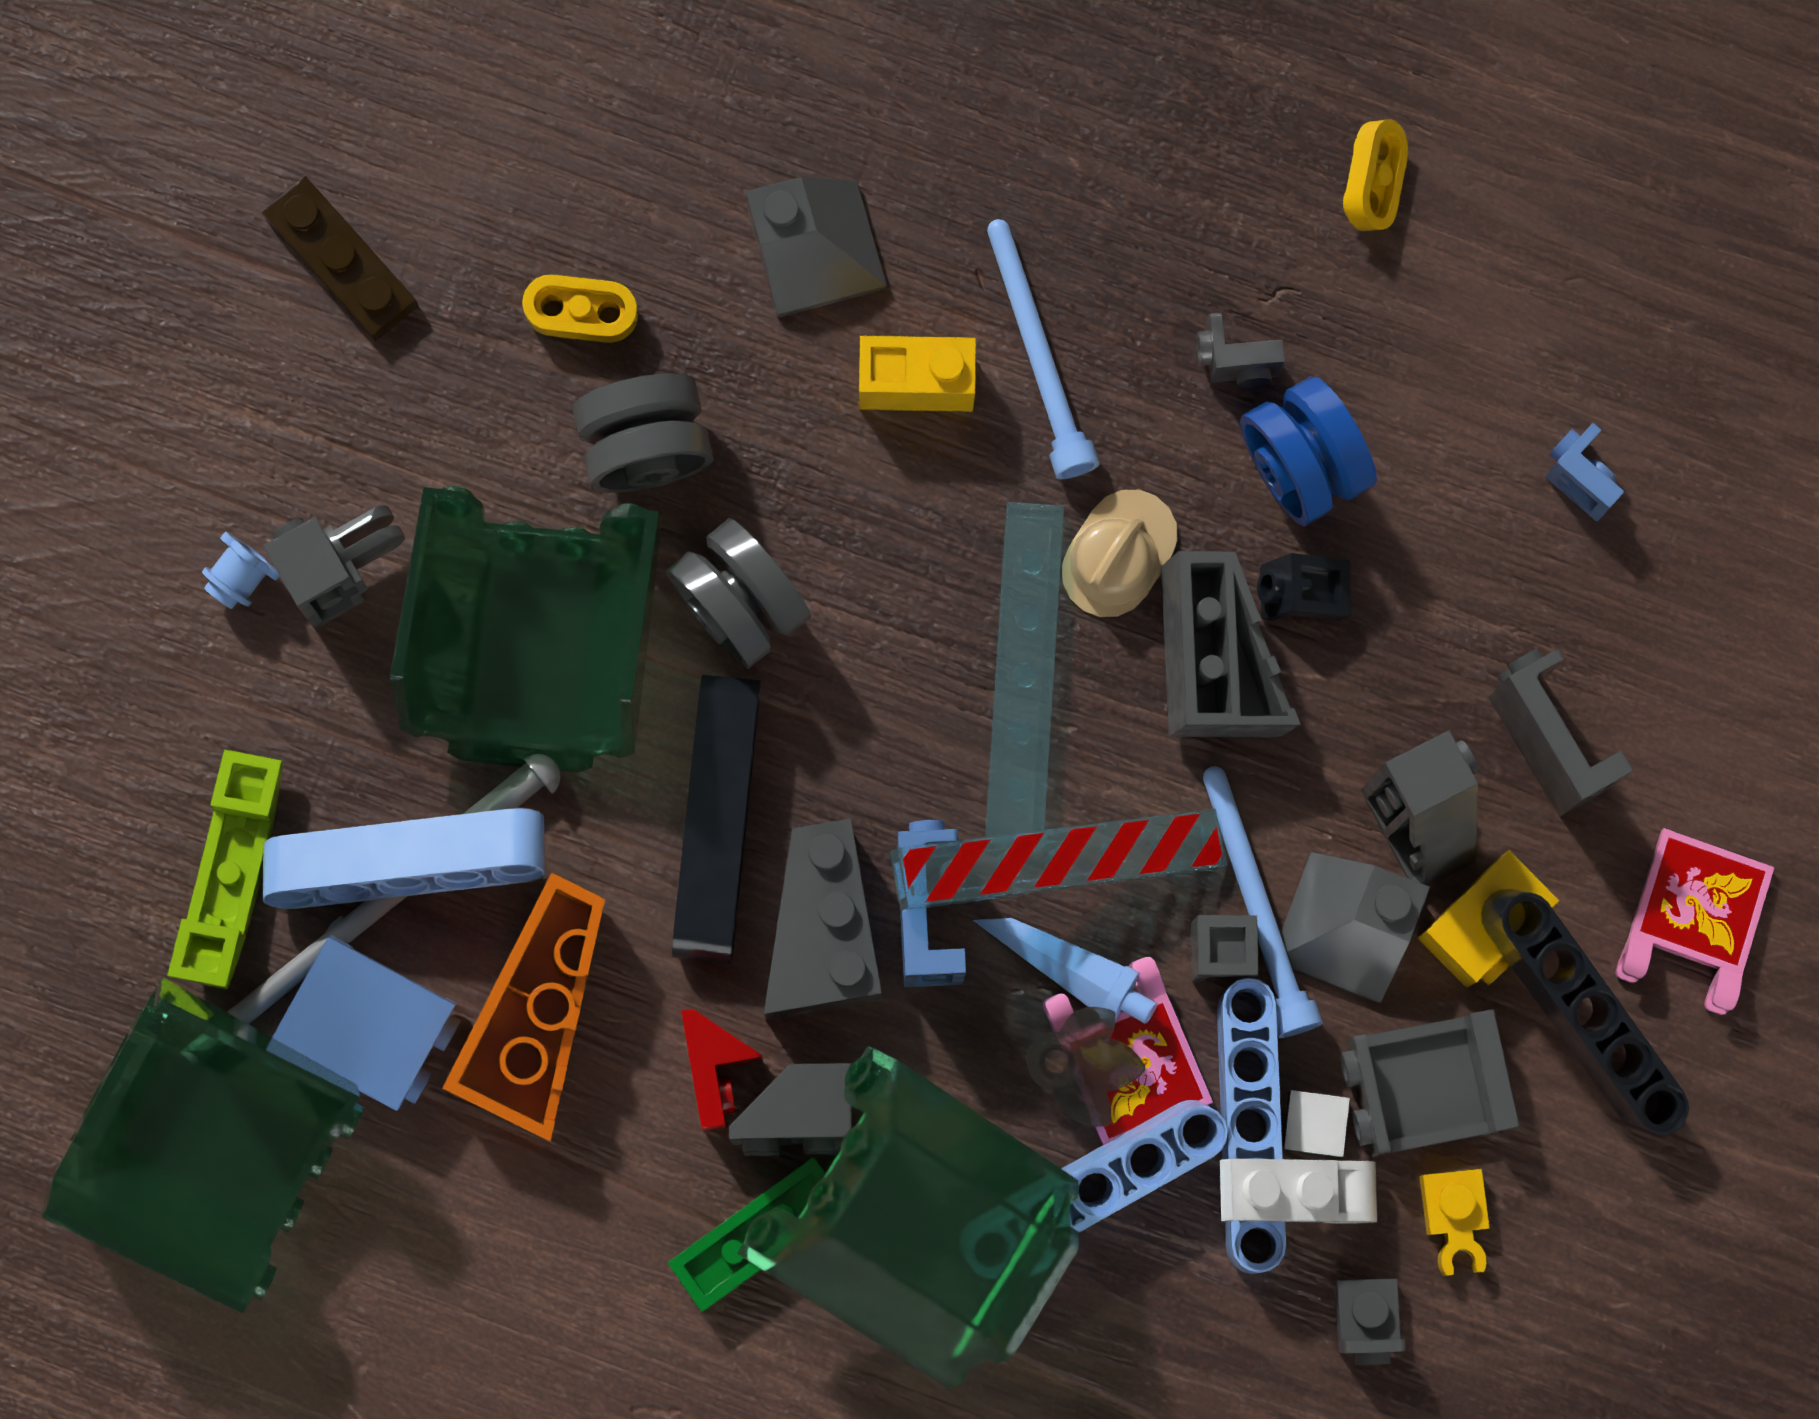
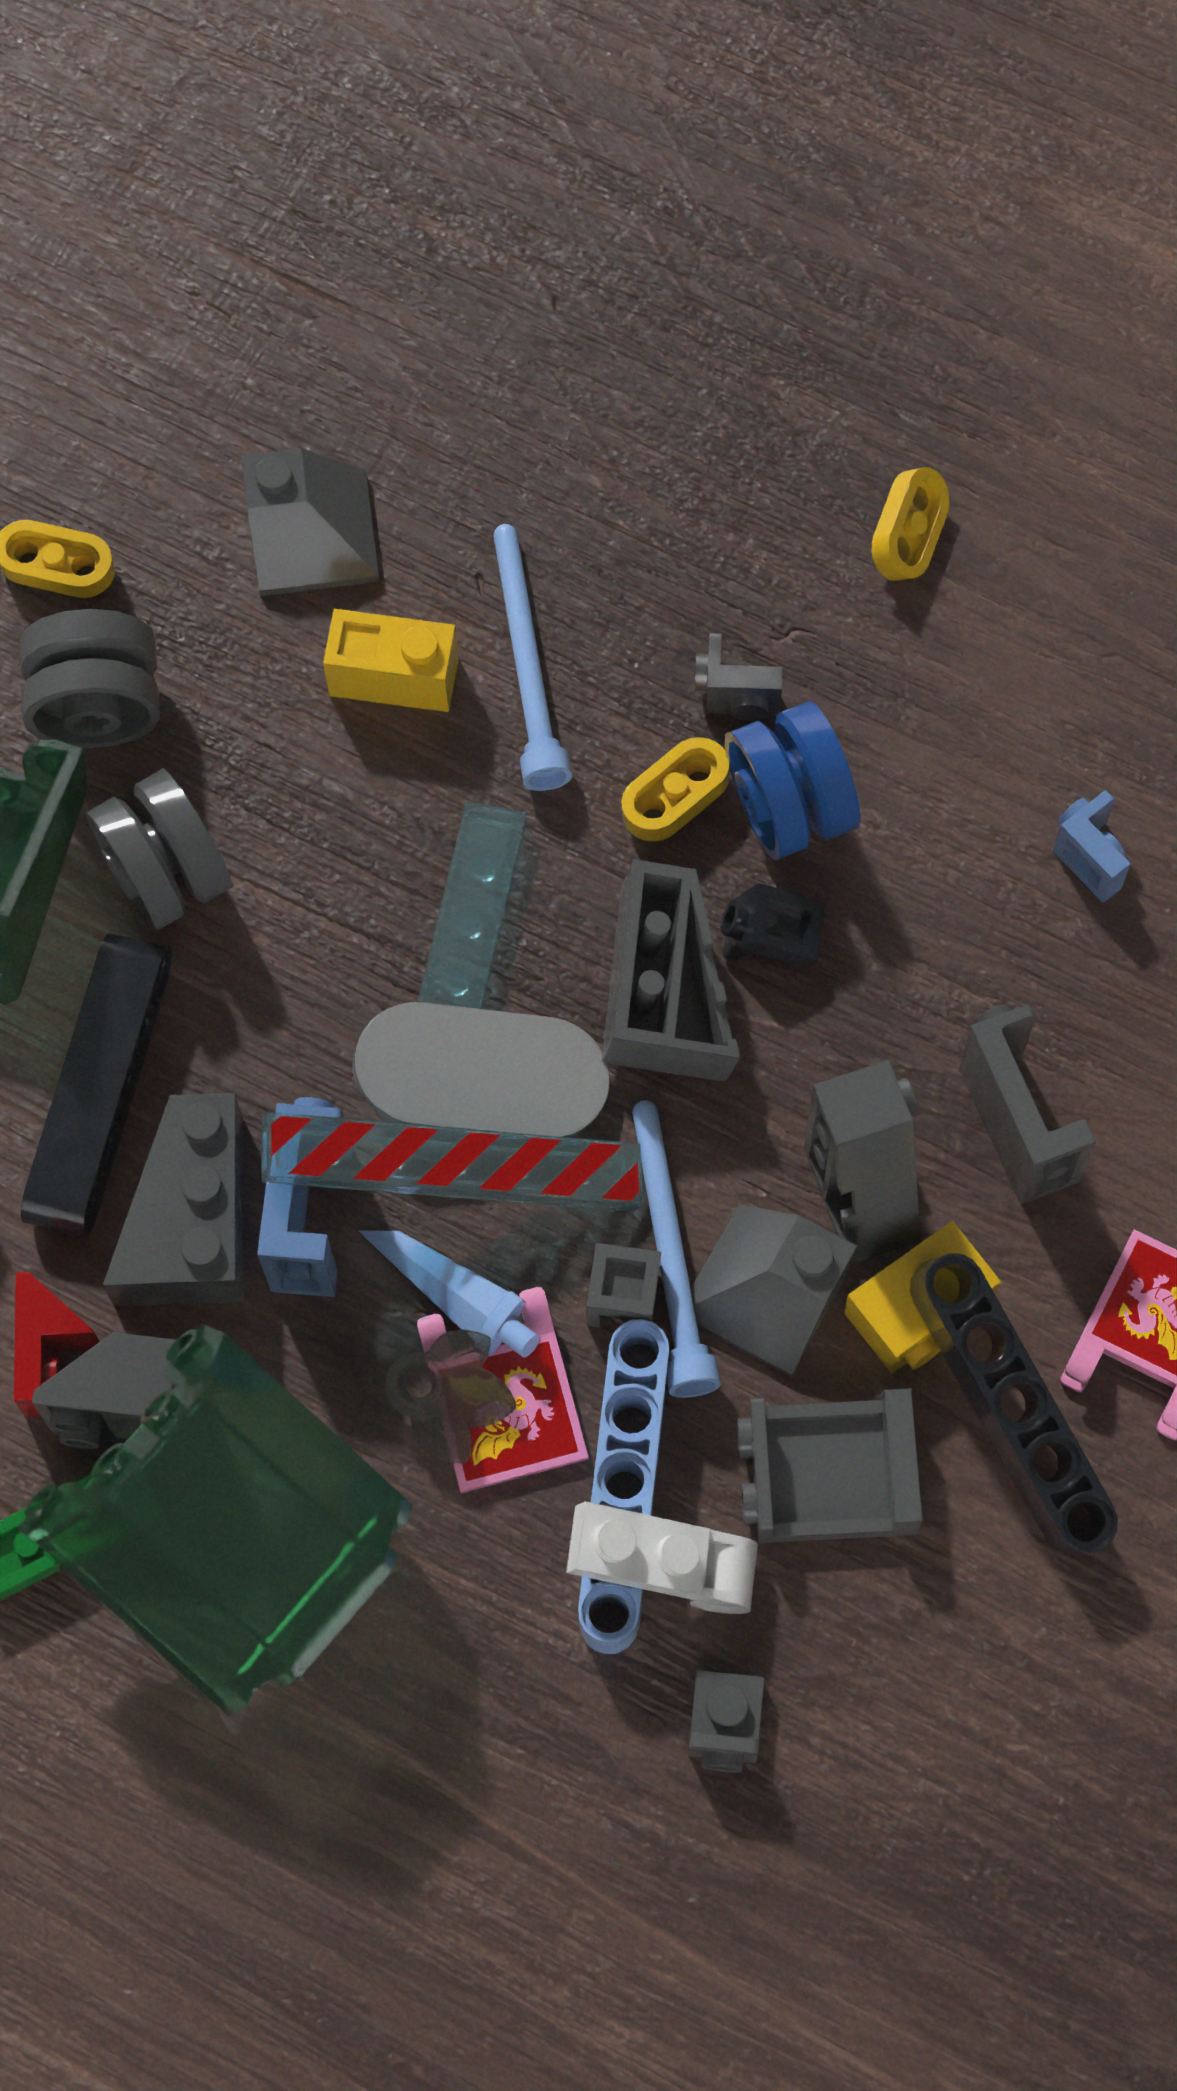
camera: 15 degrees right, 10 degrees down
(1064, 763) = (480, 1070): none -> light grey tile
(1119, 553) = (577, 872): tan piece -> none
(1174, 1159) = (471, 1525): light blue beam -> none
(1195, 467) = (670, 789): none -> yellow plate
(1315, 1124) = (699, 1493): white tile -> none
(1456, 1207) = (843, 1611): yellow plate -> none

